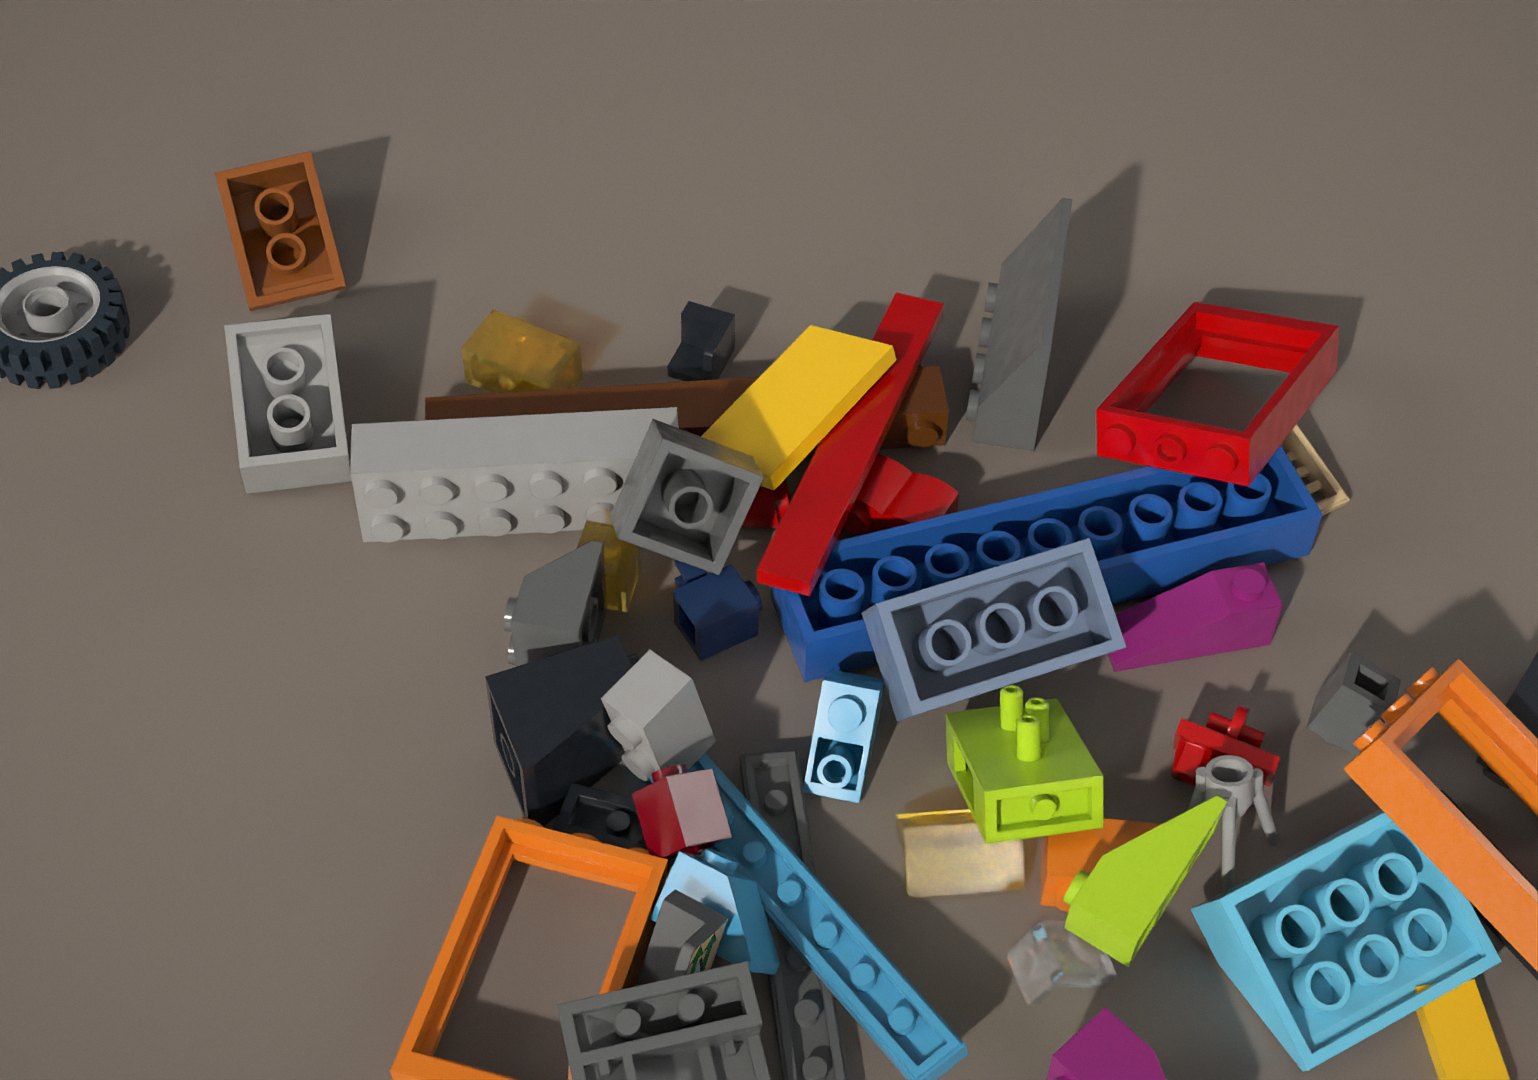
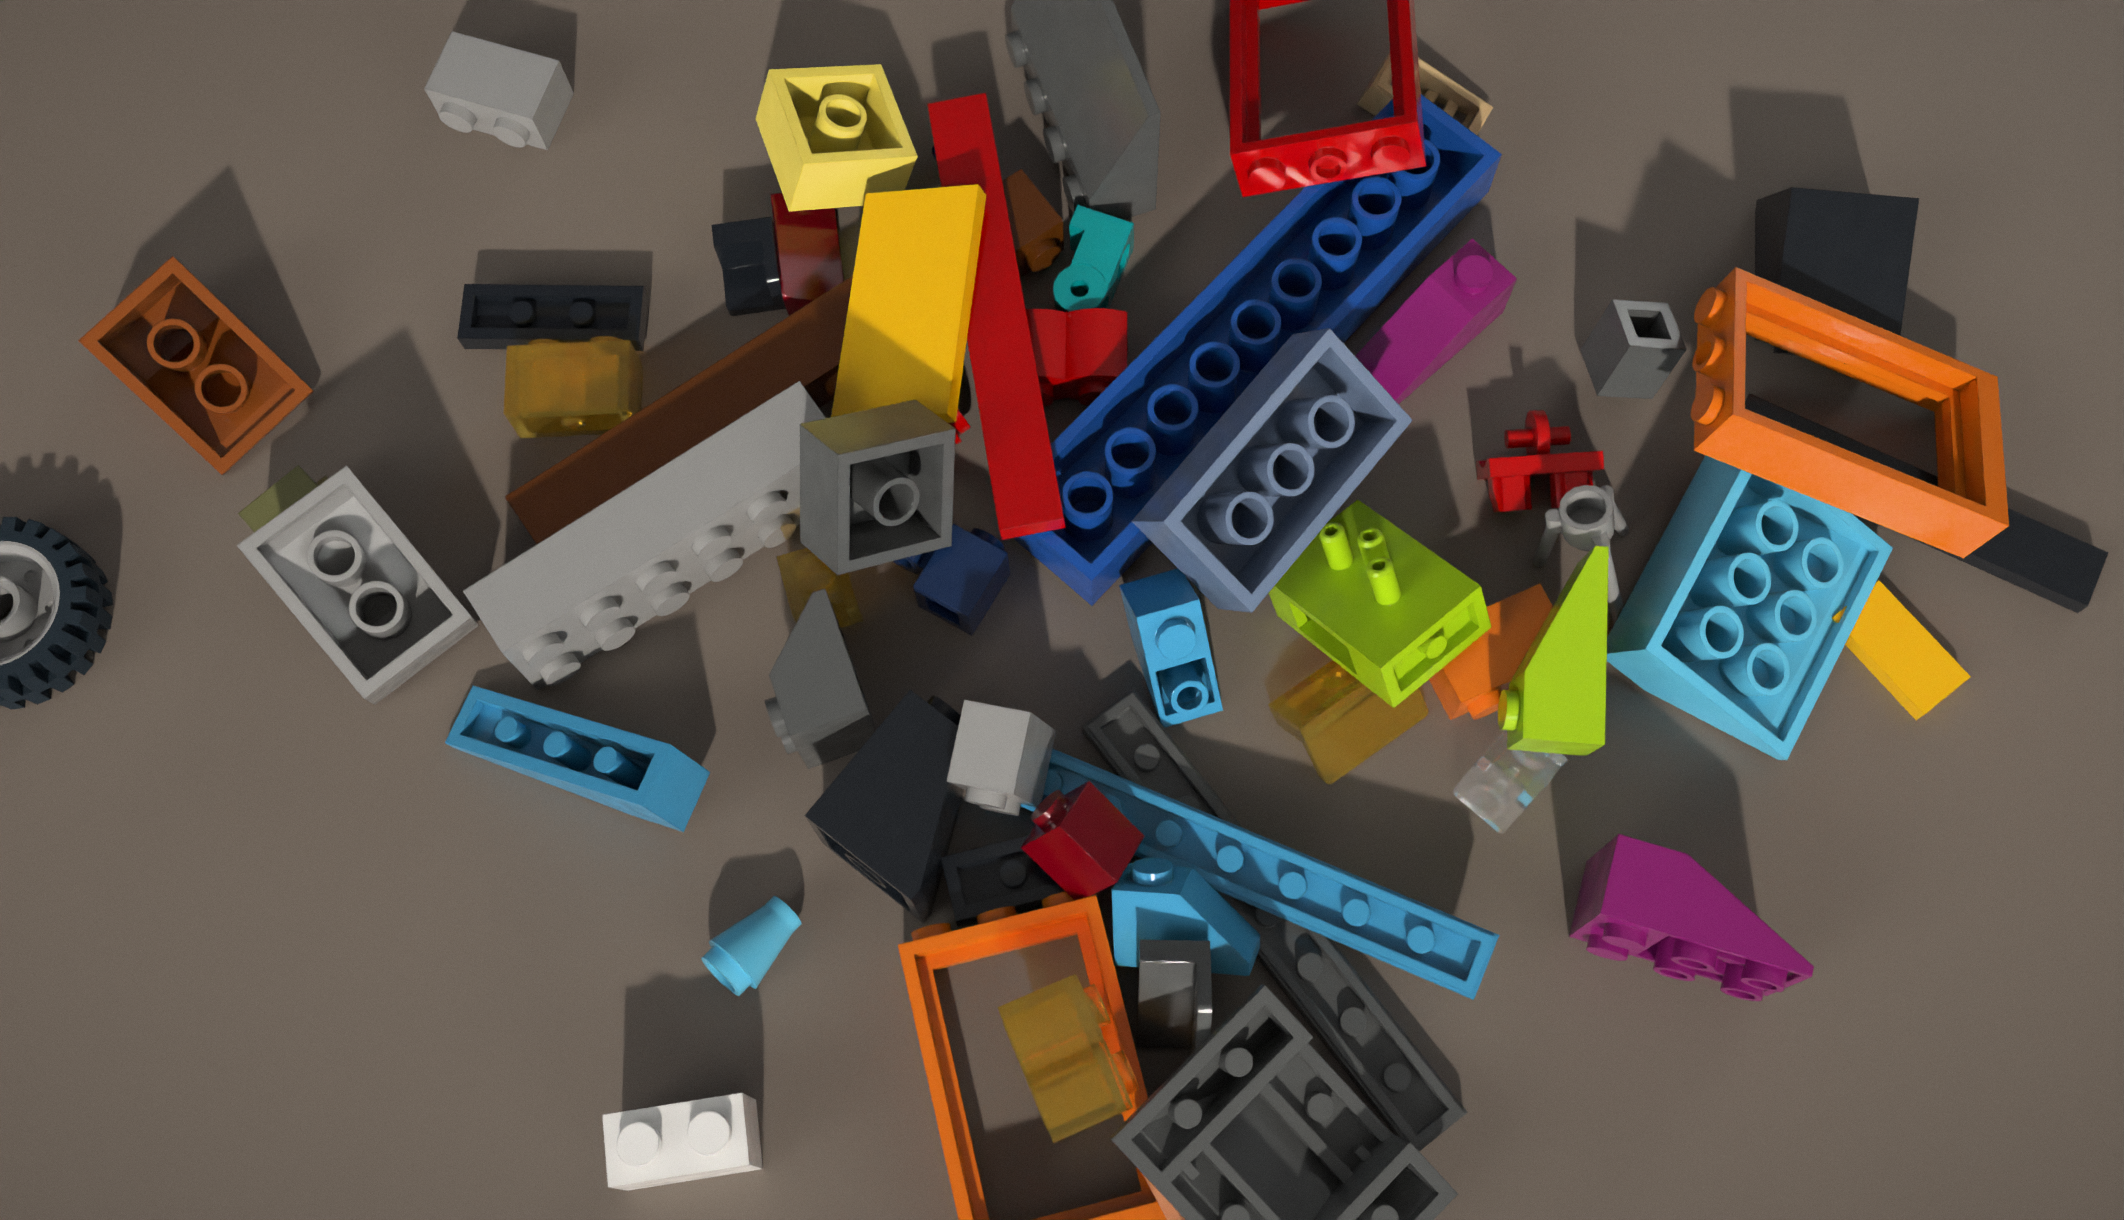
camera: 25 degrees left, 20 degrees up
(250, 871) = (682, 1142): none -> white brick
(365, 592) = (581, 756): none -> dark azure slope
(392, 773) = (750, 946): none -> medium azure cone
(541, 308) = (517, 314): none -> black plate
(565, 943) = (1067, 1058): none -> clear yellow brick
(601, 165) = (499, 91): none -> light grey brick
(750, 346) = (806, 253): none -> dark red slope
(814, 282) = (834, 135): none -> light yellow brick
(963, 456) = (1101, 256): none -> teal leg

